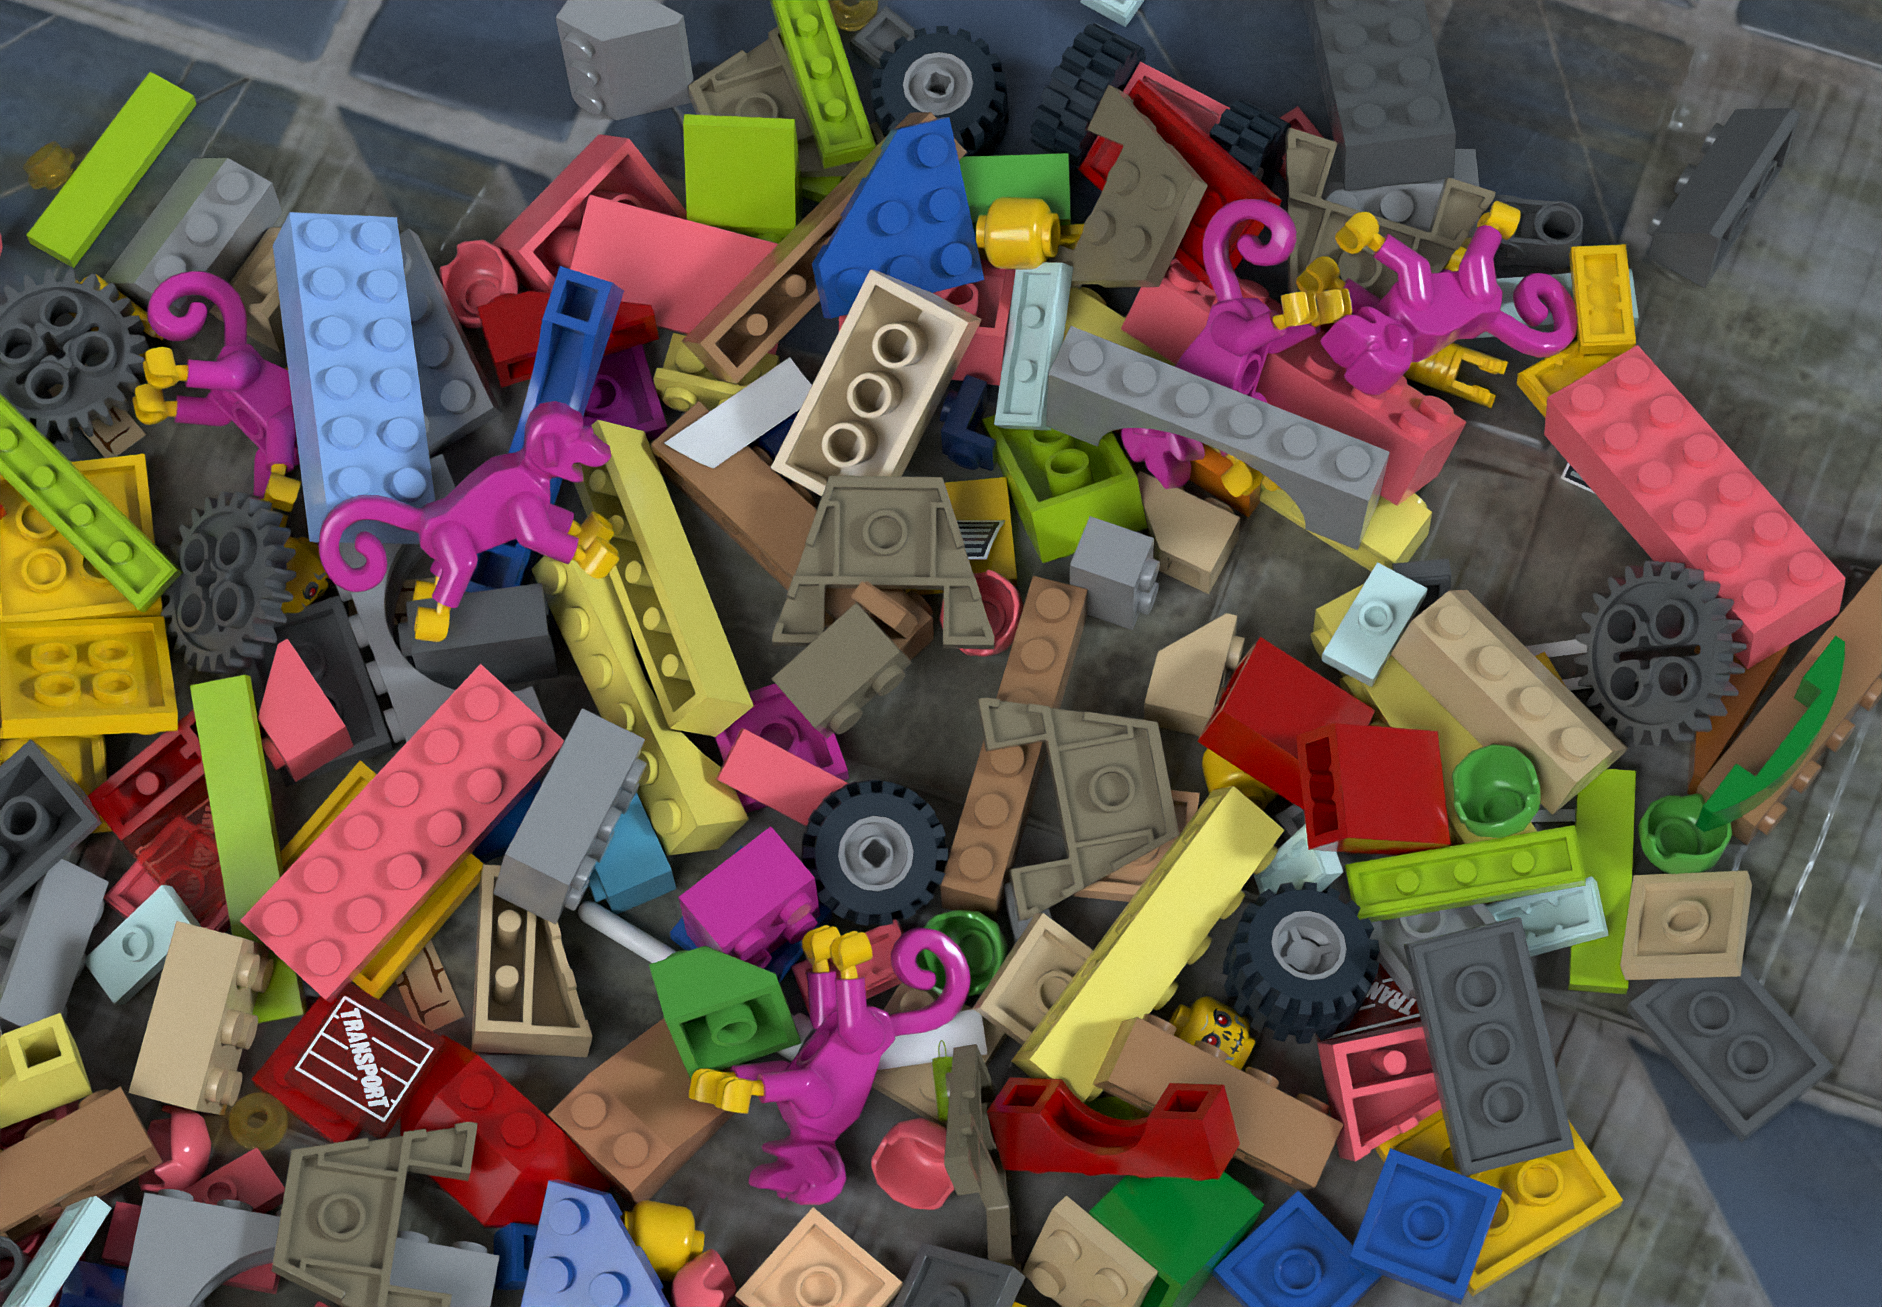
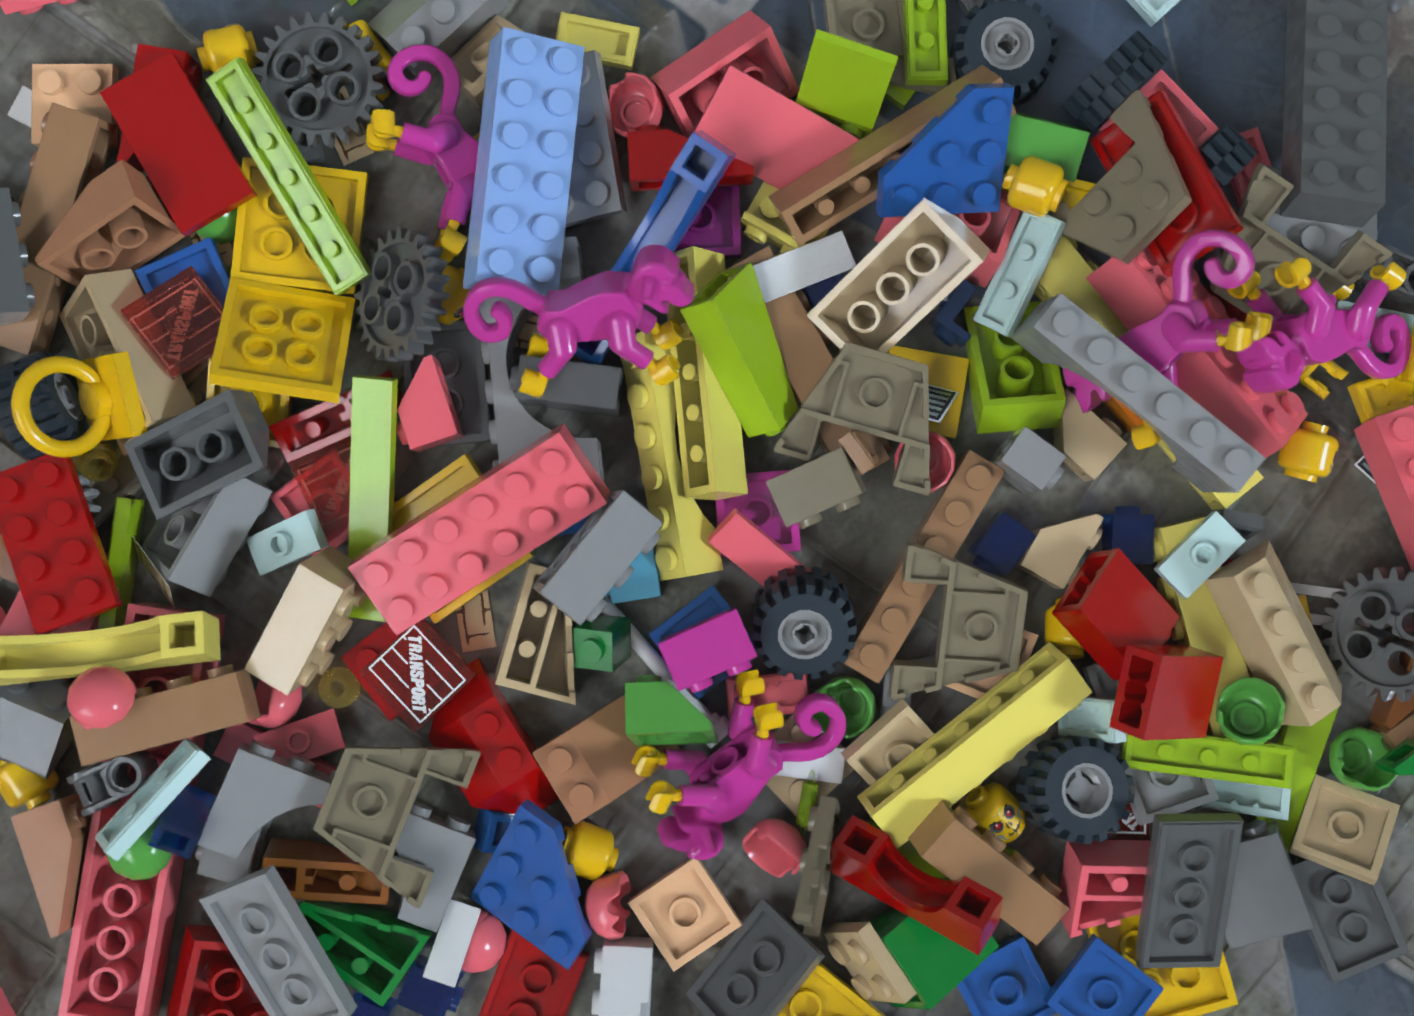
camera: 10 degrees right, 20 degrees up
(434, 218) = (612, 40): none -> light yellow tile
(608, 953) = (602, 643): none -> green brick
(700, 532) = (742, 349): none -> lime slope
(1116, 684) = (1000, 544): none -> clear blue brick
(1286, 626) = (1130, 533): none -> clear blue brick
(1487, 473) = (1309, 453): none -> yellow head
(1598, 1030) = (1265, 889): none -> dark grey brick

